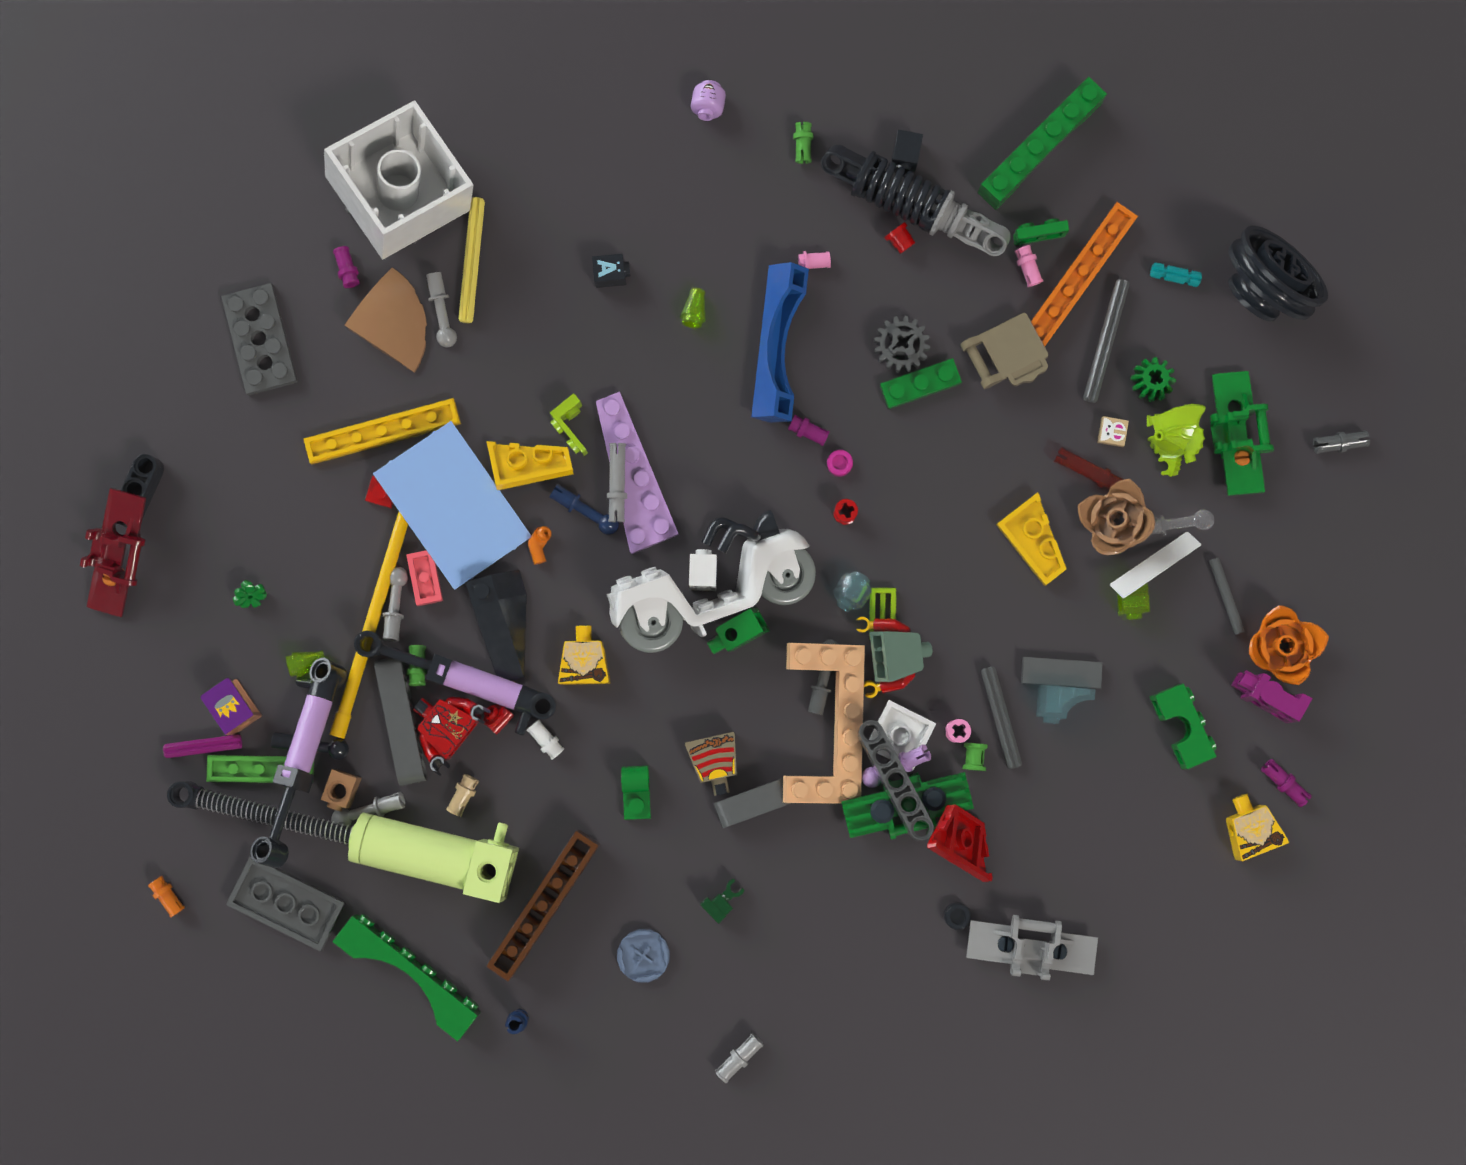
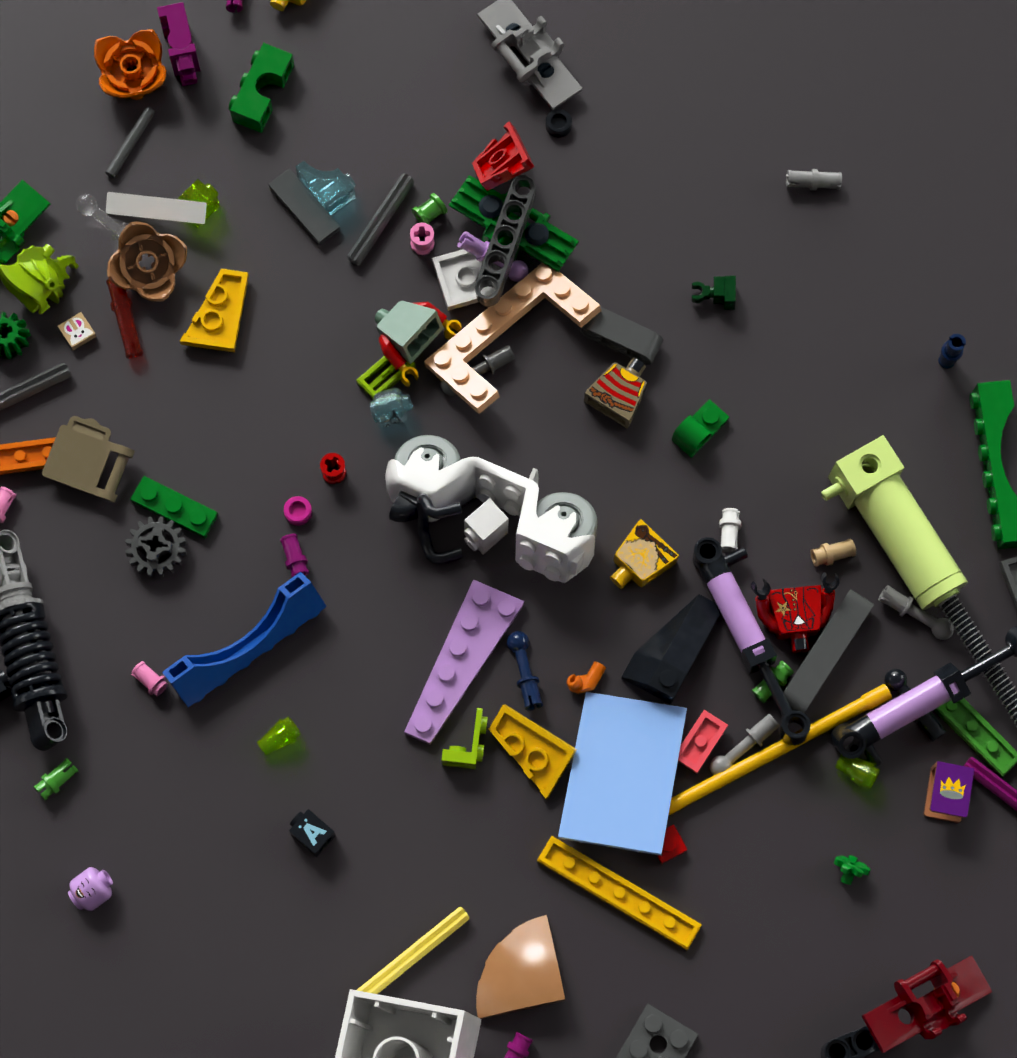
camera: 140 degrees left, 10 degrees down
(351, 784) = (912, 652): medium nougat brick -> none
(445, 336) = (491, 918): light grey pin -> none
(497, 718) = (745, 579): red plate -> none
(543, 905) = (850, 412): reddish brown brick -> none
(617, 483) = (489, 651): light grey pin -> none
(643, 955) = (812, 313): sand blue tile -> none
(748, 627) = (501, 451): green torso -> none
(900, 238) = (67, 628): red piece -> none

